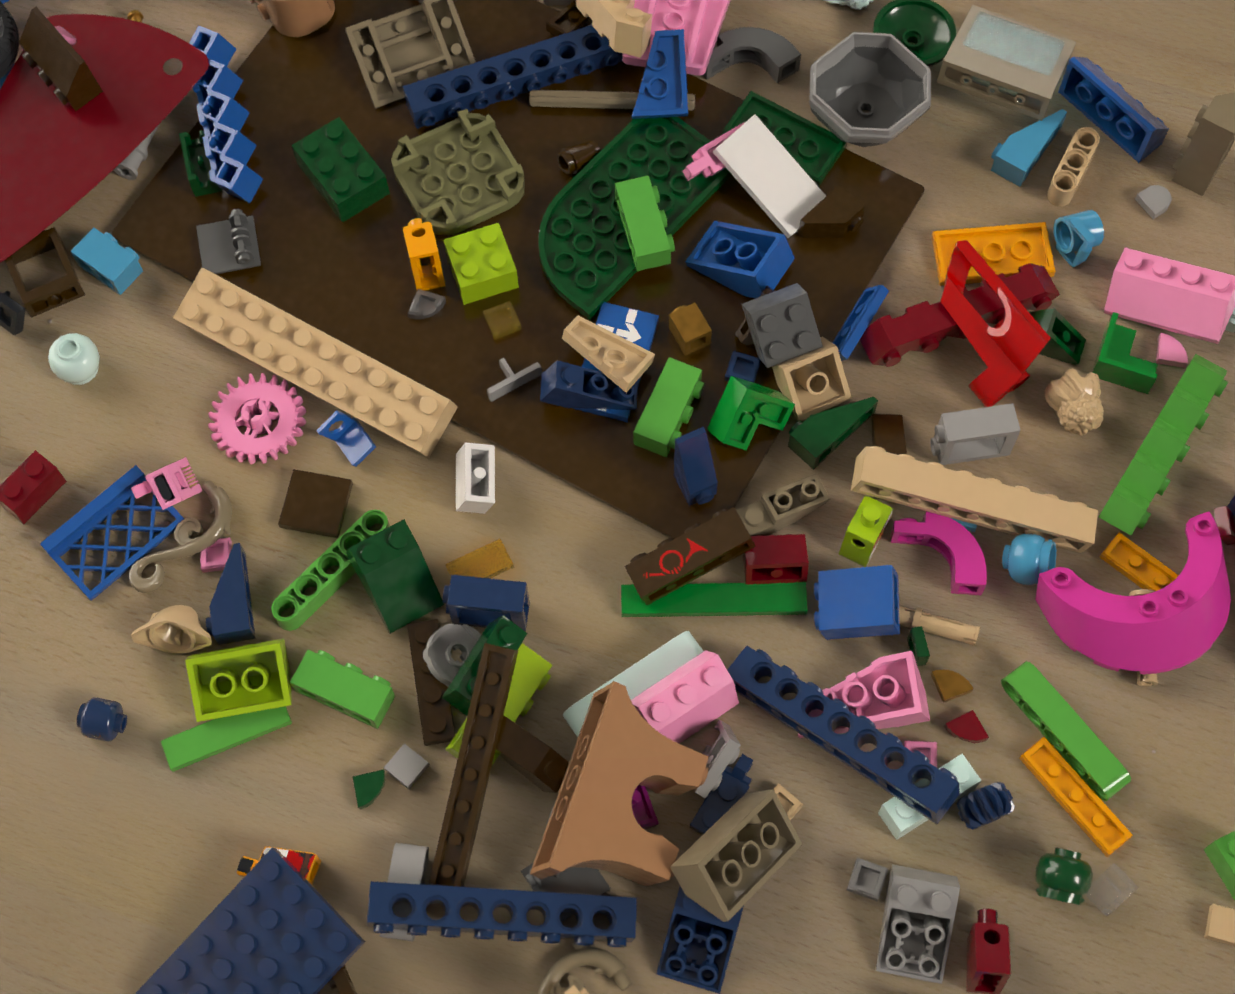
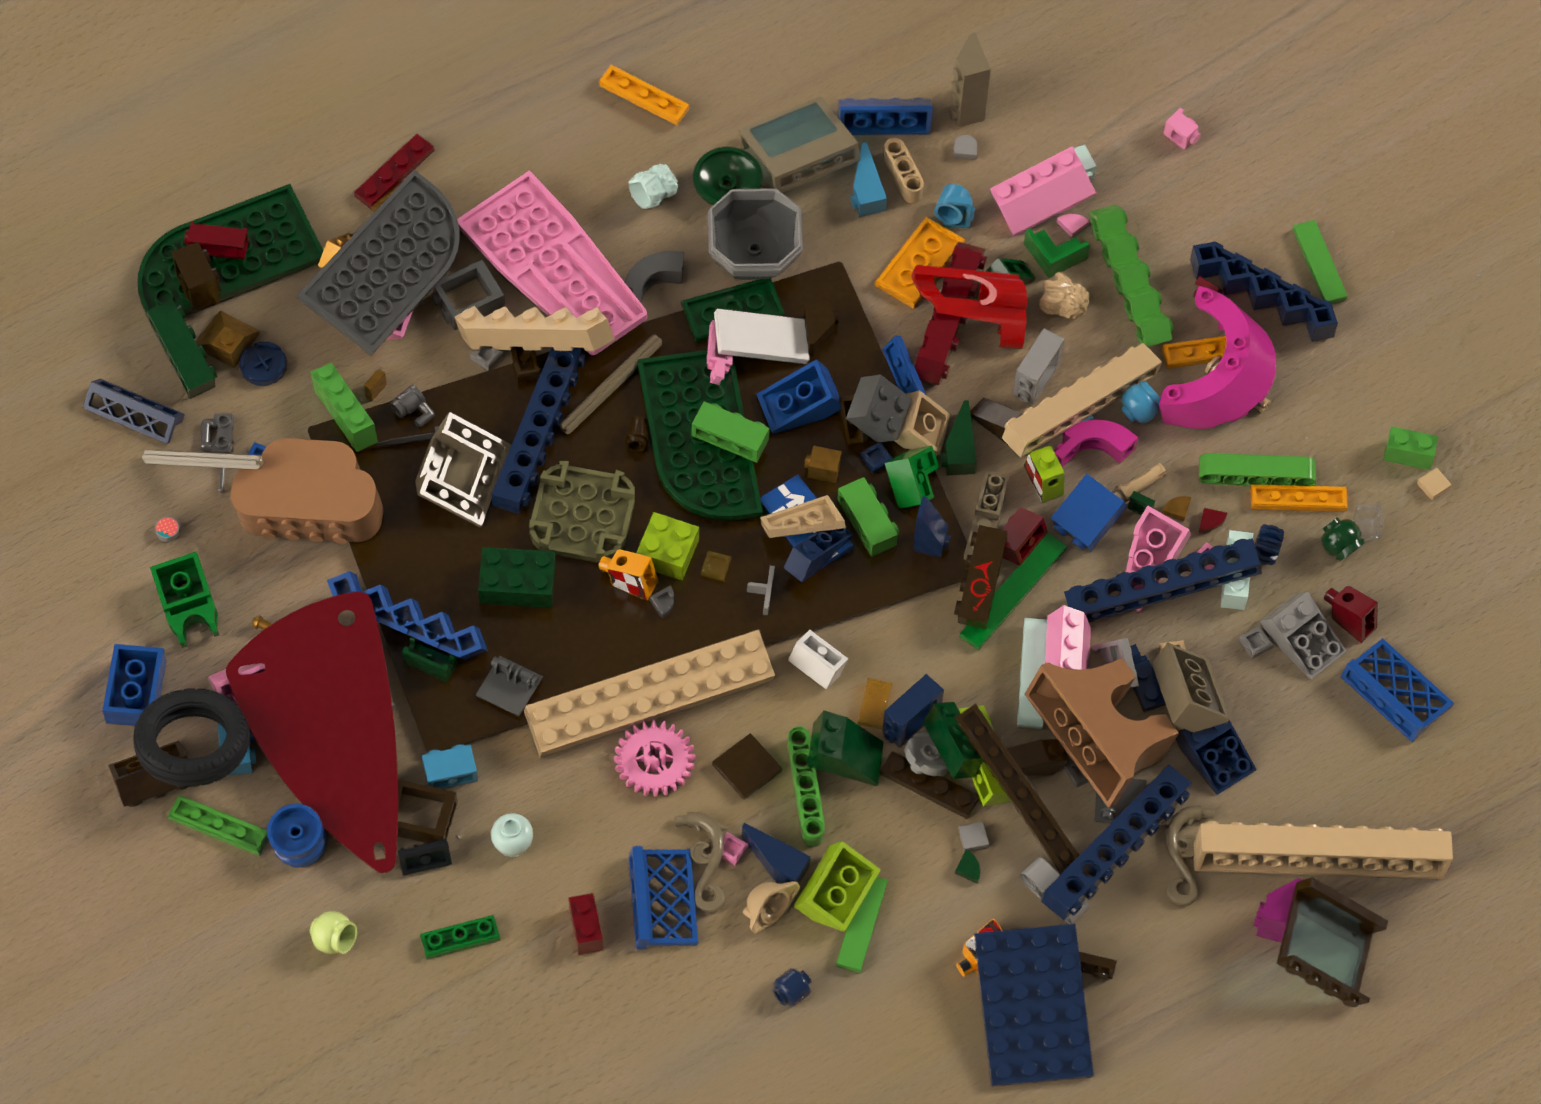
camera: 55 degrees left, 5 degrees down
(57, 62) = (284, 680): dark brown slope -> none
(169, 484) = (660, 832): bright pink piece -> none
(343, 688) = (894, 834): bright green brick -> none
(349, 436) = (723, 712): blue bracket -> none
(664, 80) = (636, 340): blue wing -> none

